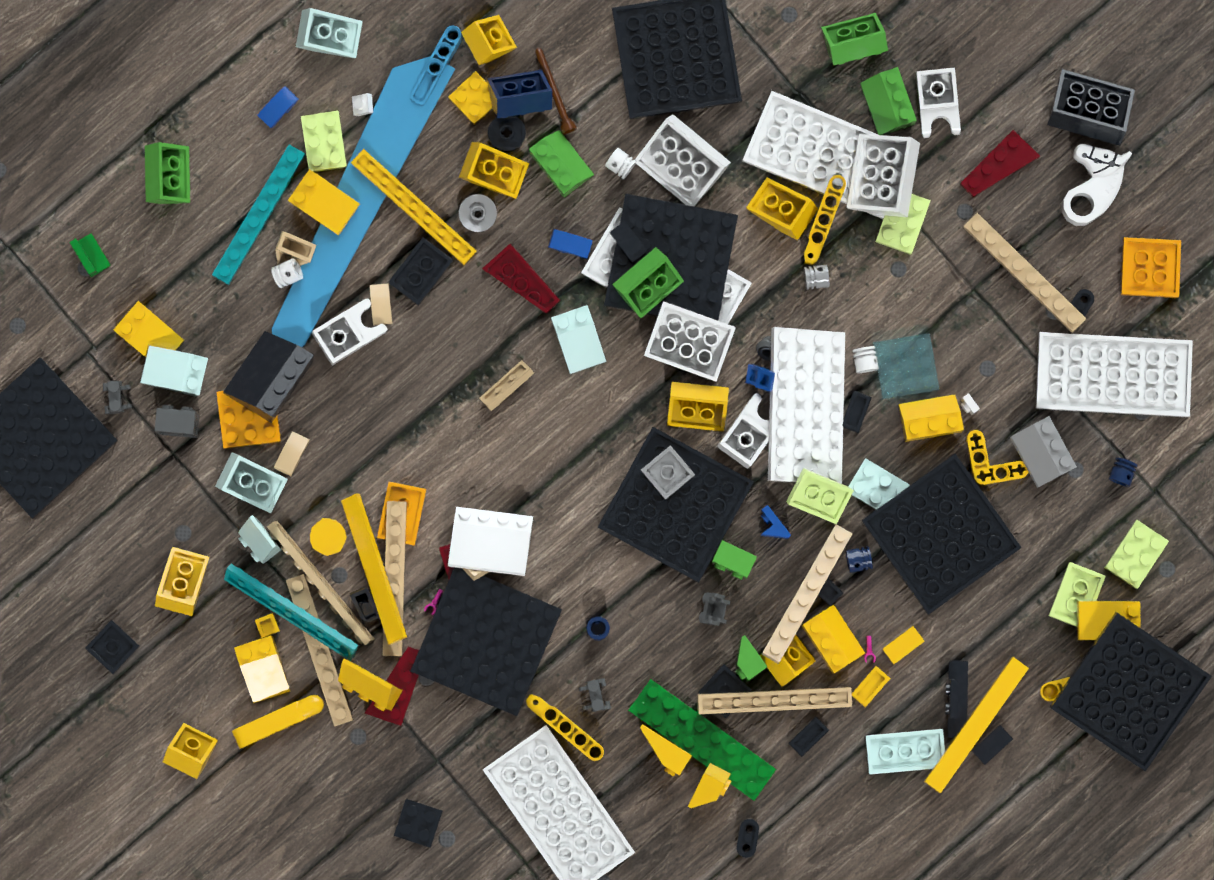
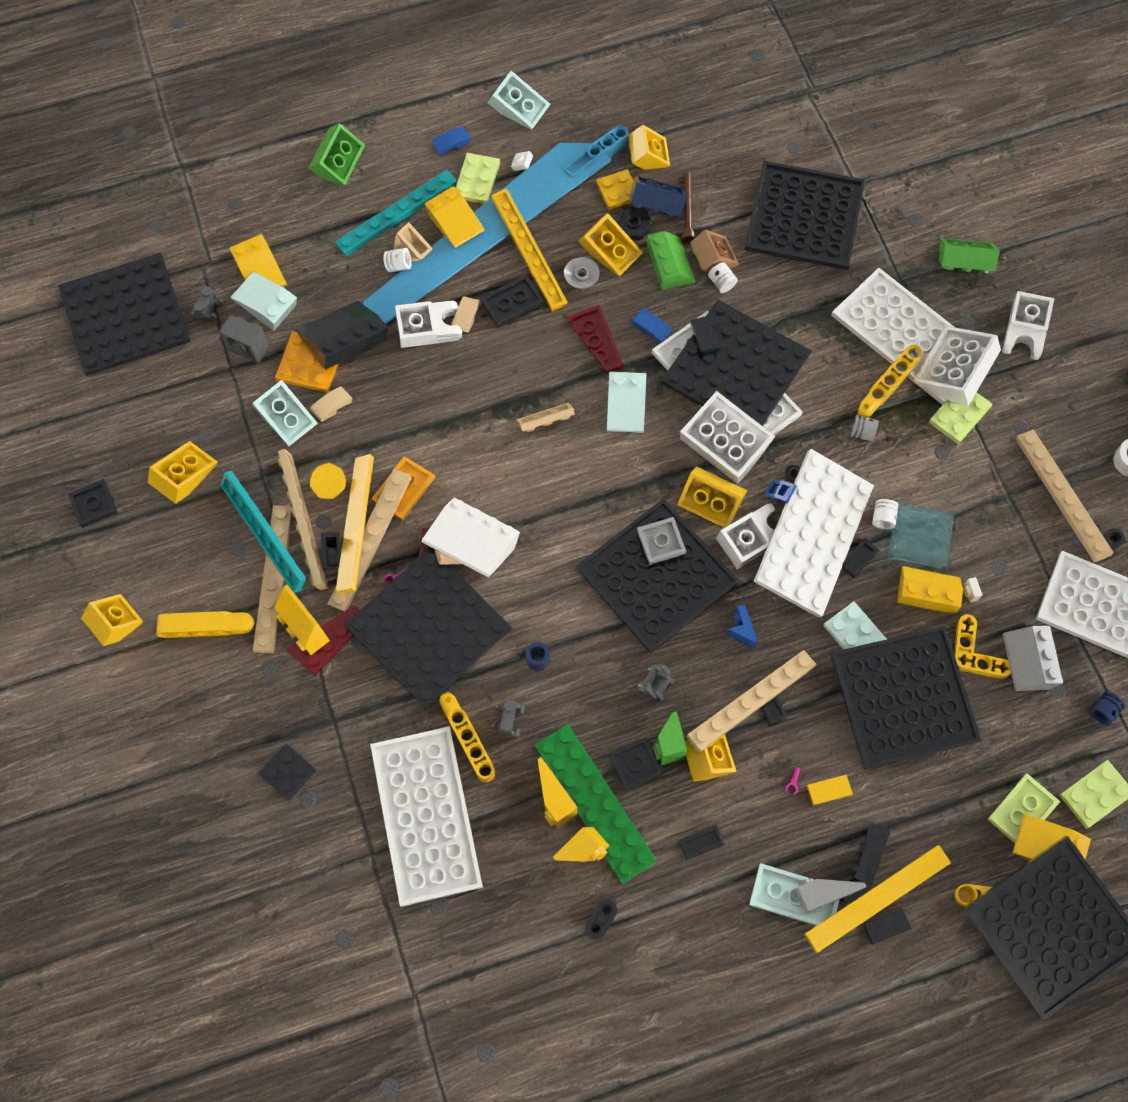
camera: 25 degrees right, 15 degrees down
(90, 254) = (243, 193): green panel -> none
(258, 539) = (265, 458): light aqua slope -> none
(262, 669) = (213, 572): slope -> none
(267, 625) = (237, 537): yellow plate -> none
(601, 136) = (713, 249): none -> medium nougat slope
(648, 282) = (709, 371): bright green slope -> none
(682, 161) = (777, 294): white slope -> none
(734, 560) = (693, 644): bright green brick -> none
(774, 700) = (681, 791): tan plate -> none
(782, 208) = (854, 363): yellow slope -> none
(819, 496) = (798, 615): yellowish green plate -> none
(833, 639) = (760, 756): yellow slope -> none
(858, 559) = (814, 690): dark blue piece -> none
(870, 686) = (782, 817): yellow tile -> none
(888, 101) = (982, 308): bright green slope -> none
(925, 742) = (822, 892): none -> light grey slope
(1002, 161) = (1066, 398): dark red wing -> none

